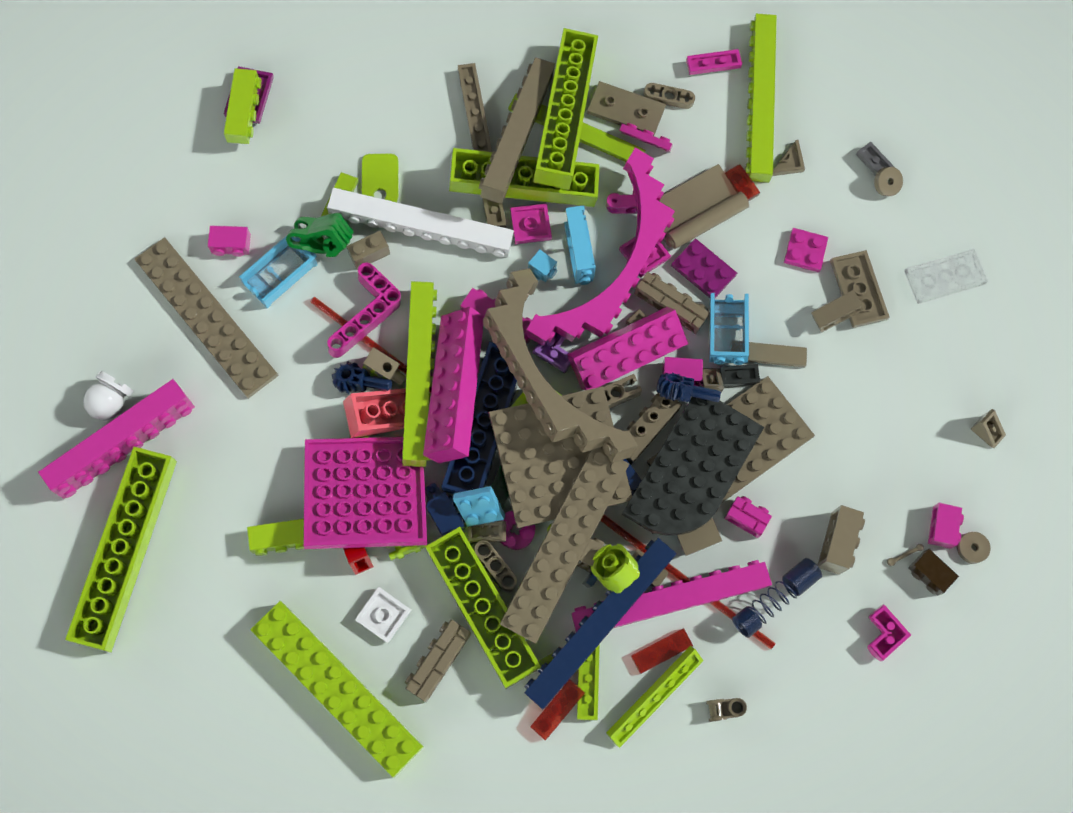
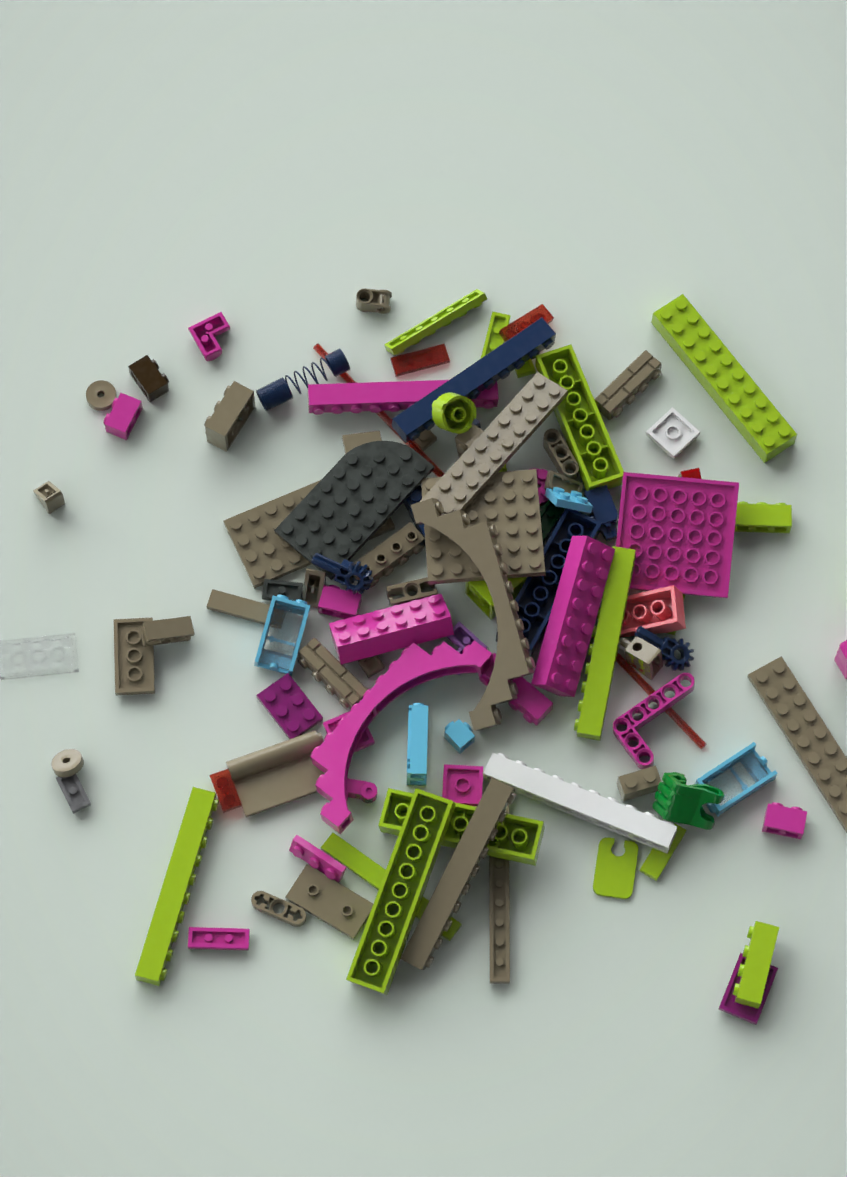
camera: 165 degrees left, 5 degrees down
(747, 516) = (310, 457): dark pink brick -> none
(791, 162) = (165, 808): dark tan tile -> none
(806, 249) = (176, 709): dark pink plate -> none
(891, 562) = (183, 397): dark tan hinge -> none

